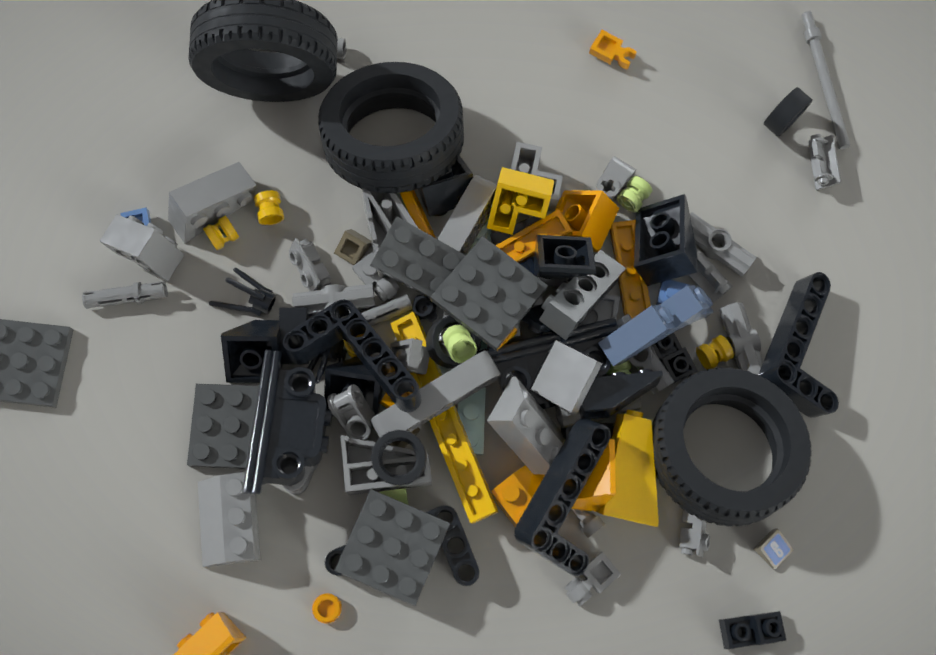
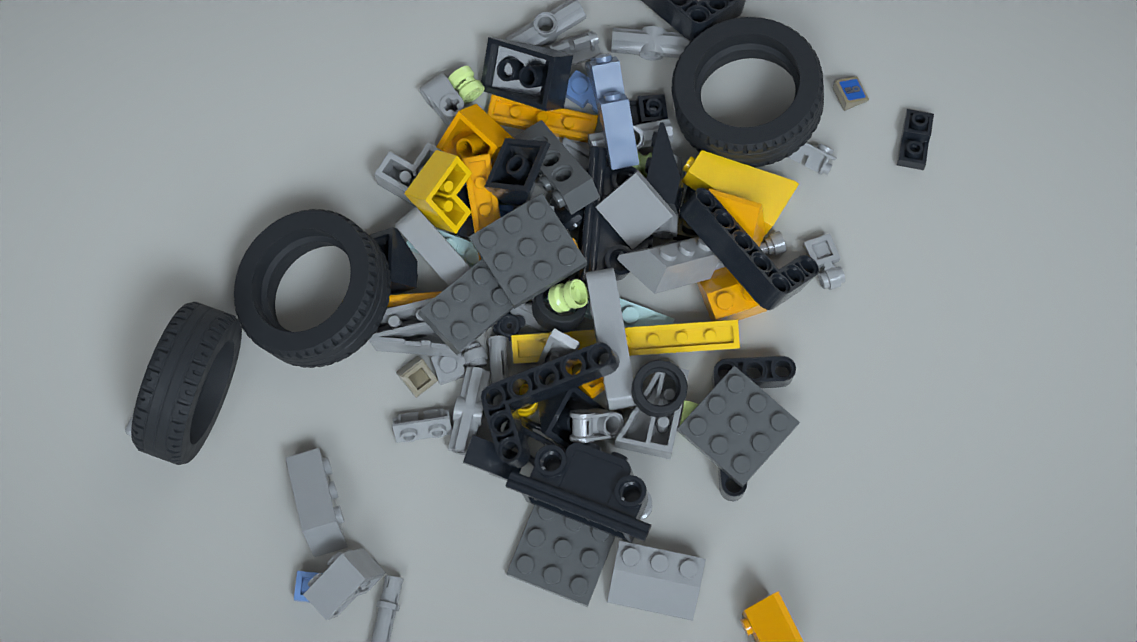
camera: 65 degrees left, 0 degrees up
(216, 236) = (354, 502): yellow wheel -> none
(245, 349) = (494, 506): black slope -> none
(260, 298) = (440, 483): black plant -> none
(269, 208) = (341, 444): yellow wheel -> none
(327, 608) = (771, 512): light orange tile -> none
(608, 47) = (297, 51): light orange plate -> none
(714, 352) = (652, 72): yellow wheel -> none

